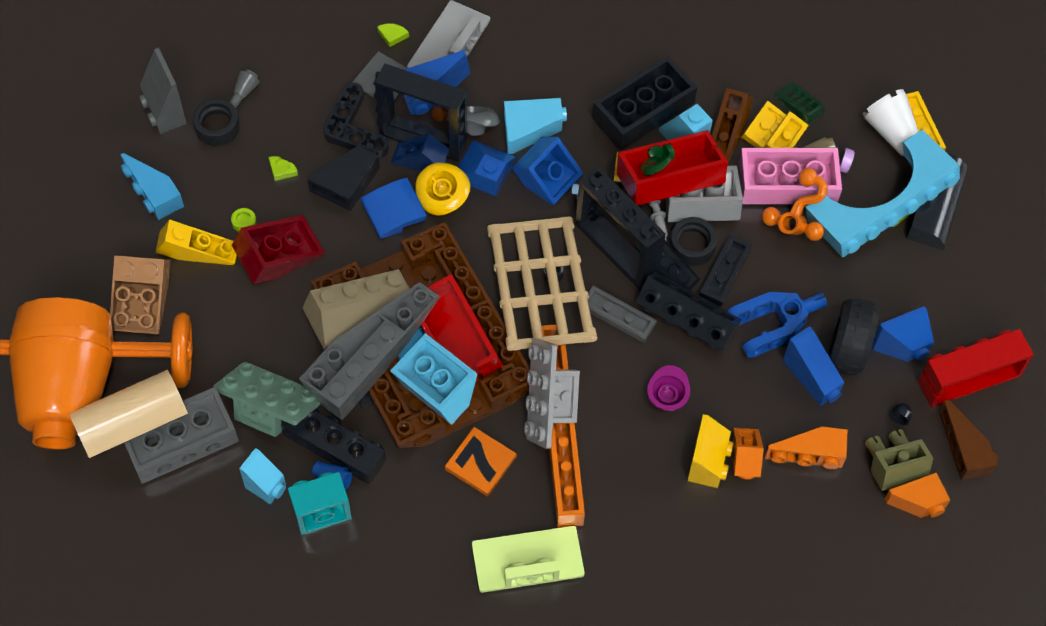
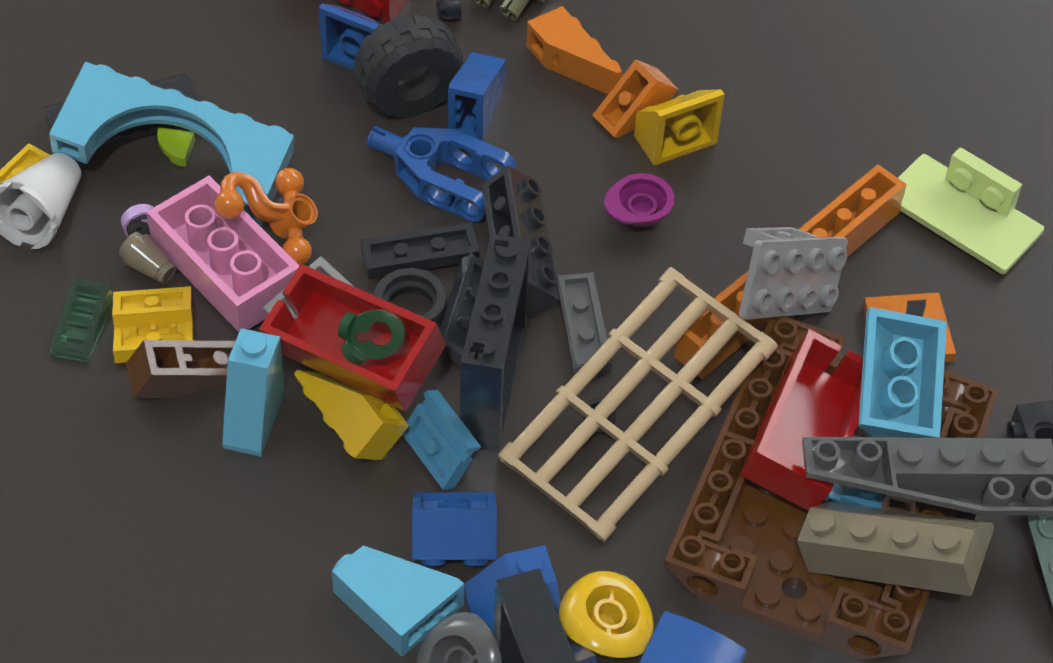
camera: 130 degrees left, 10 degrees down
(644, 102) = (244, 474): black brick -> none

